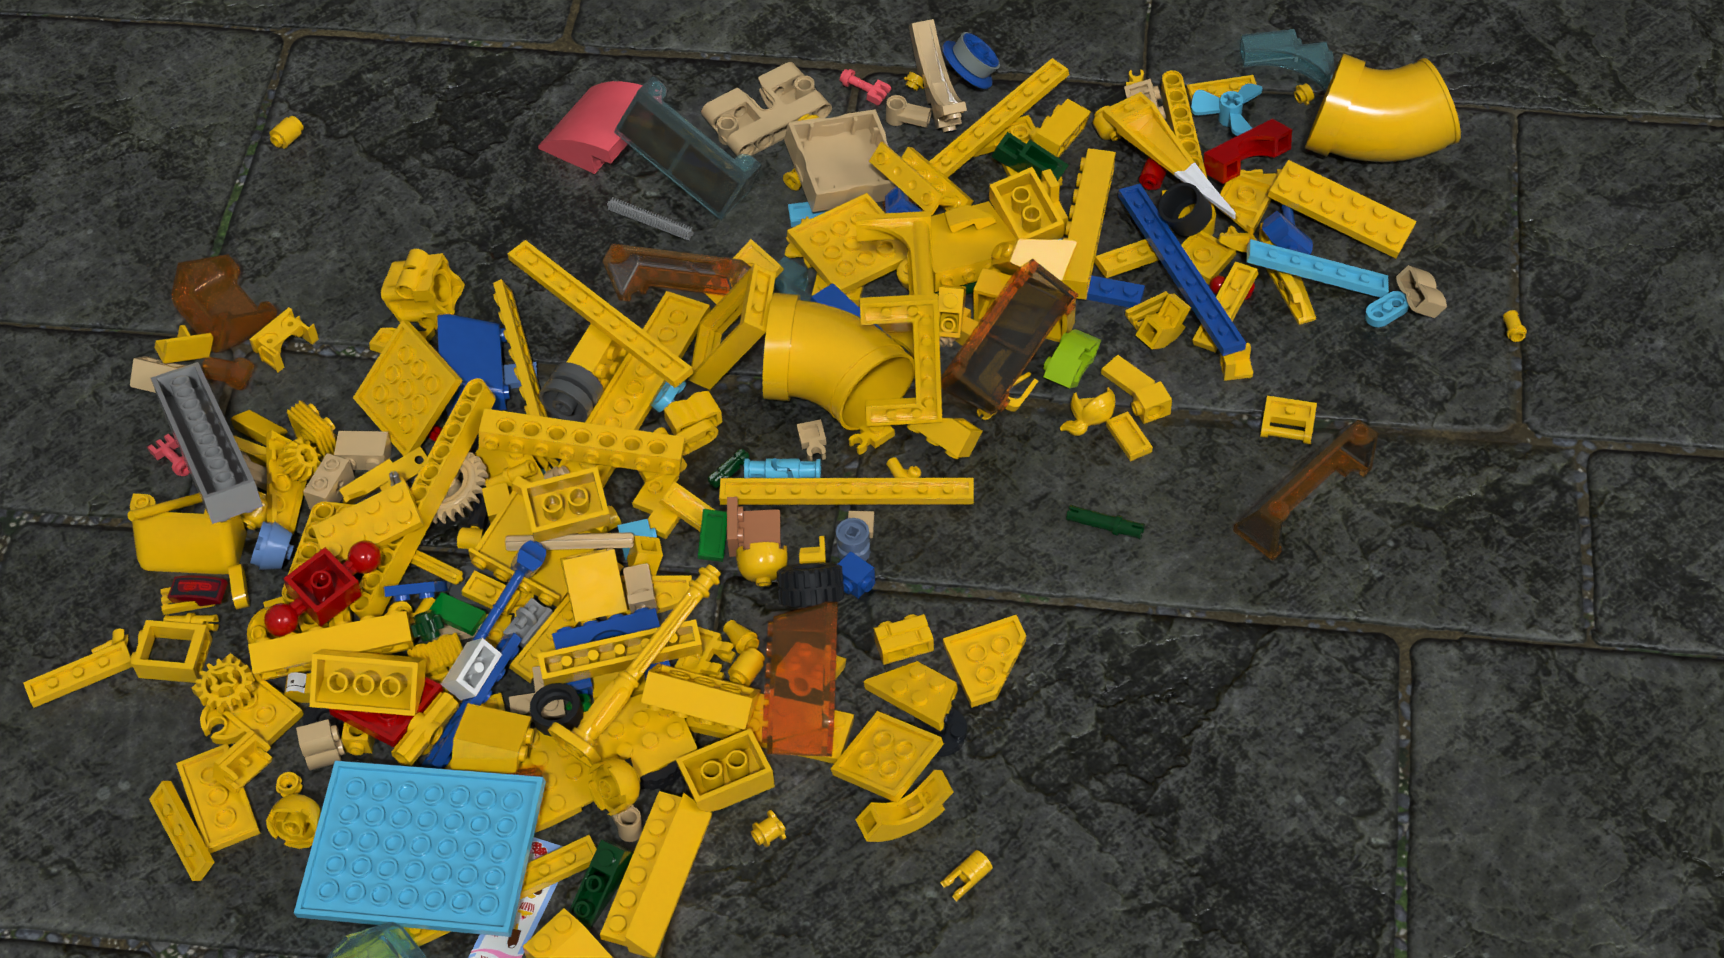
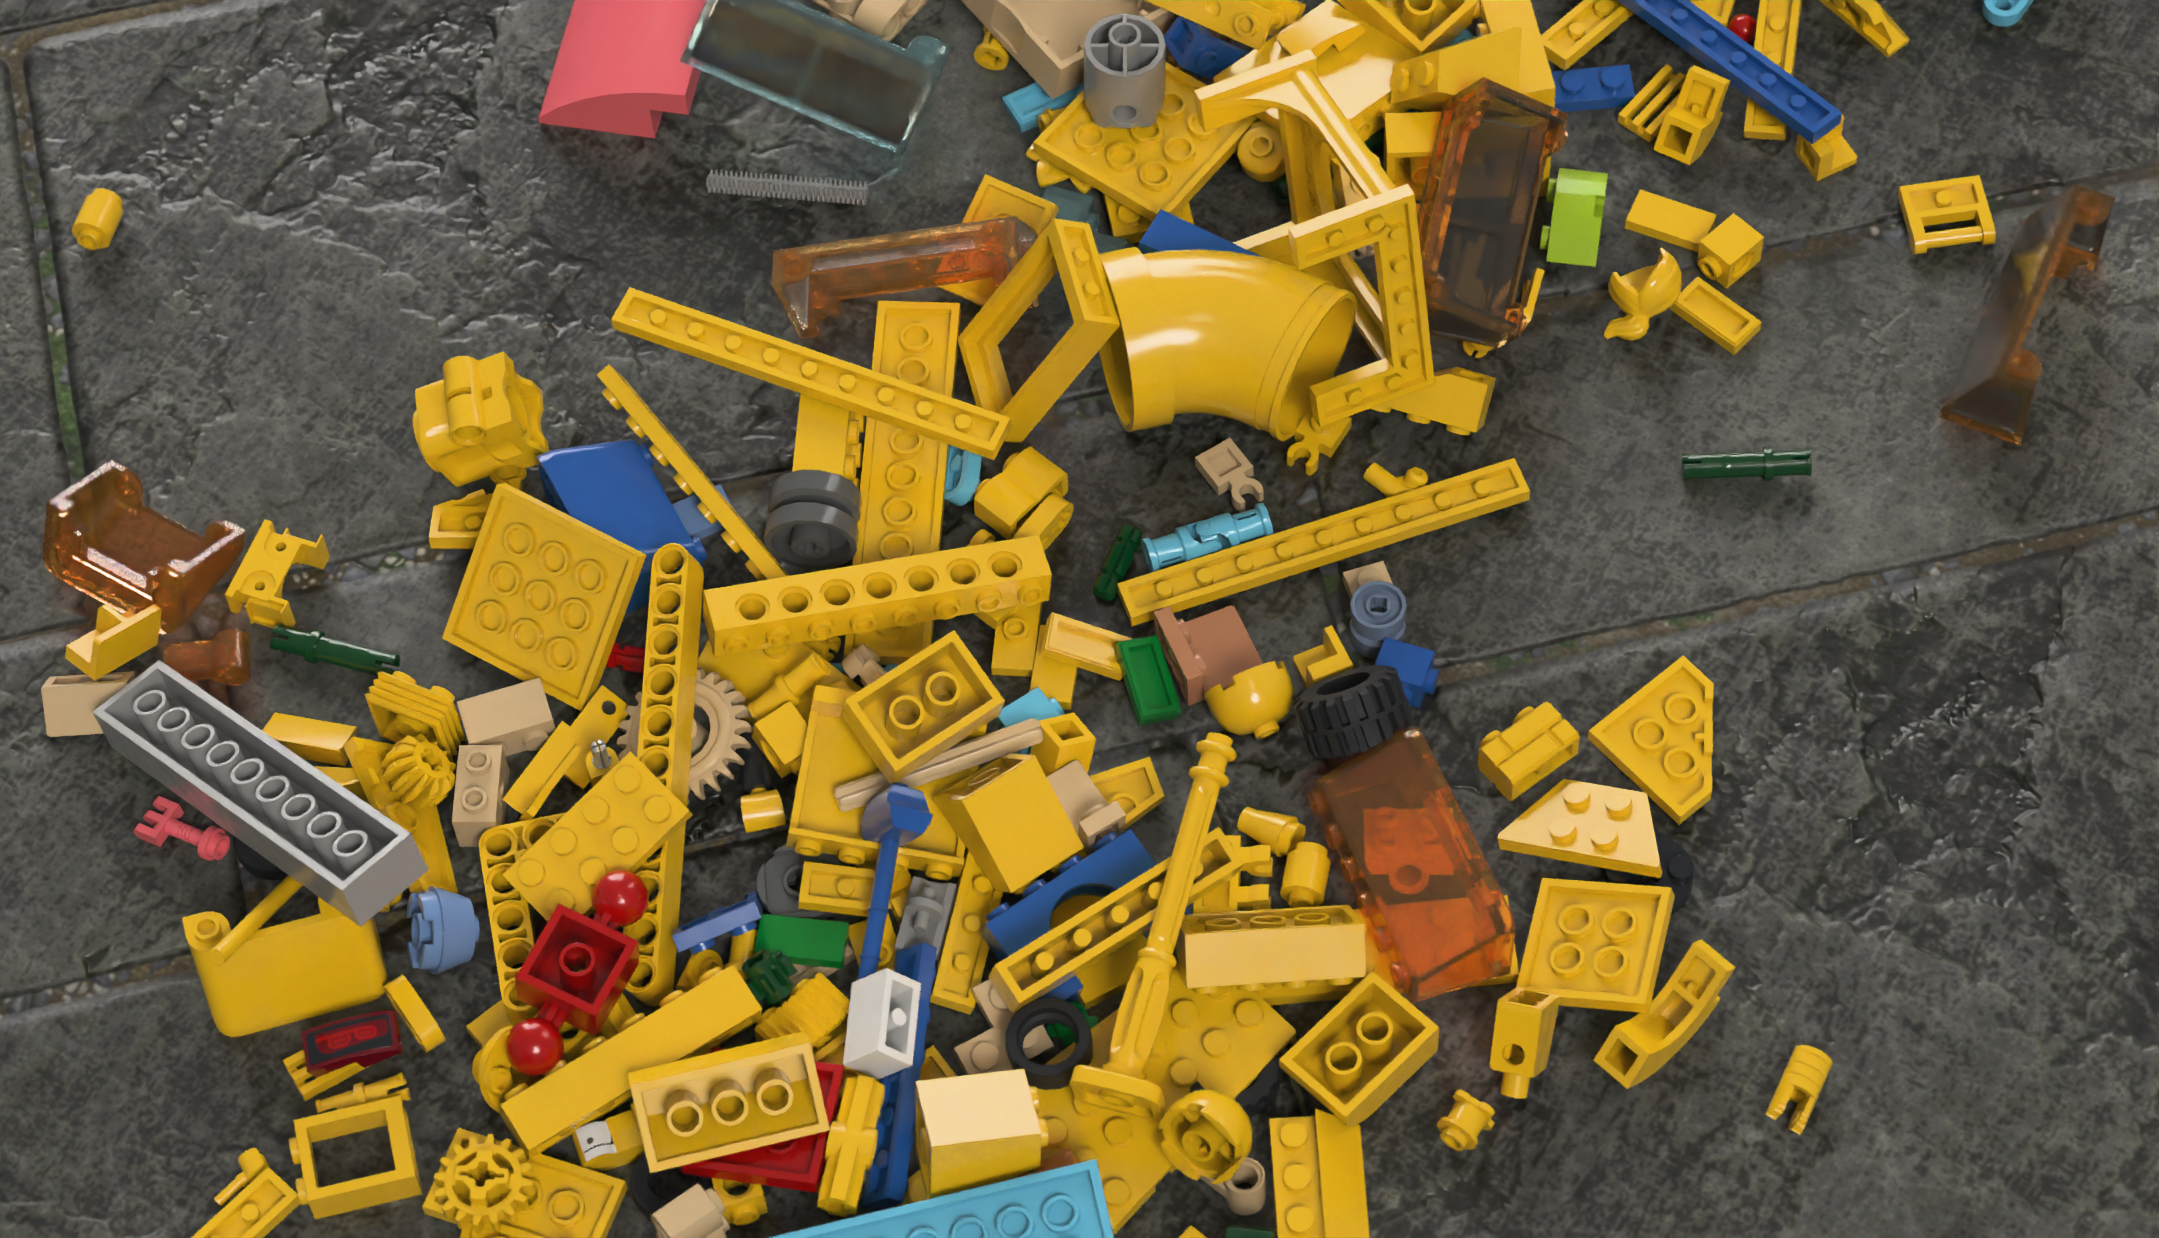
camera: 20 degrees left, 5 degrees up
(287, 383) = (318, 647): none -> dark green pin
(437, 567) = (733, 876): yellow axle -> none
(819, 792) = (1527, 1021): none -> yellow torso
(845, 196) = (1124, 71): none -> light grey cylinder

